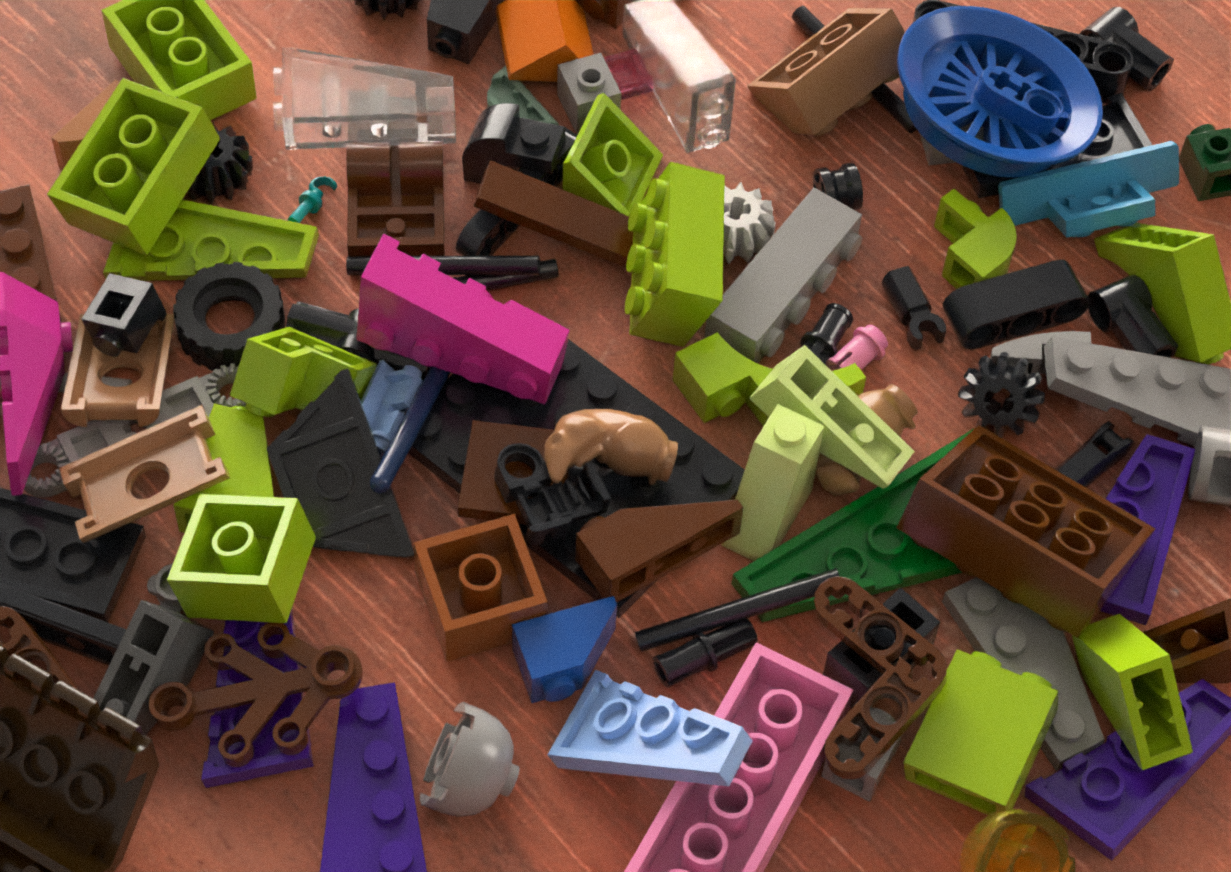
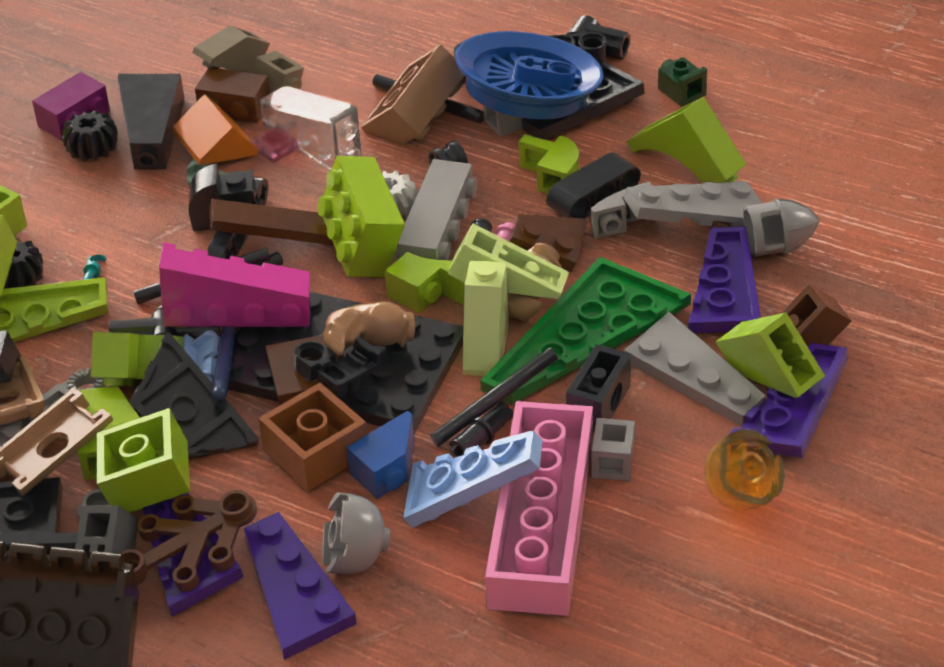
camera: 15 degrees left, 15 degrees down
(219, 285) = (56, 329): black tyre -> none
(354, 100) = (105, 198): clear slope -> none
(395, 194) = (137, 228): reddish brown plate -> none
(580, 84) = (257, 153): light grey brick -> none
(610, 159) = (289, 183): lime slope -> none
(648, 542) = (417, 374): reddish brown slope -> none
(893, 684) = (616, 390): reddish brown beam -> none
(912, 306) = (520, 203): black bar -> none
(922, 368) = (561, 233): none -> reddish brown wing
(982, 733) = (684, 410): lime brick -> none
(990, 380) = (603, 222): black gear -> none
(1024, 529) = (658, 296): reddish brown slope -> none
(1089, 462) = (681, 256): black bar -> none
(1094, 192) = (615, 113): dark azure bracket -> none
(1128, 312) = (666, 169): black piece -> none

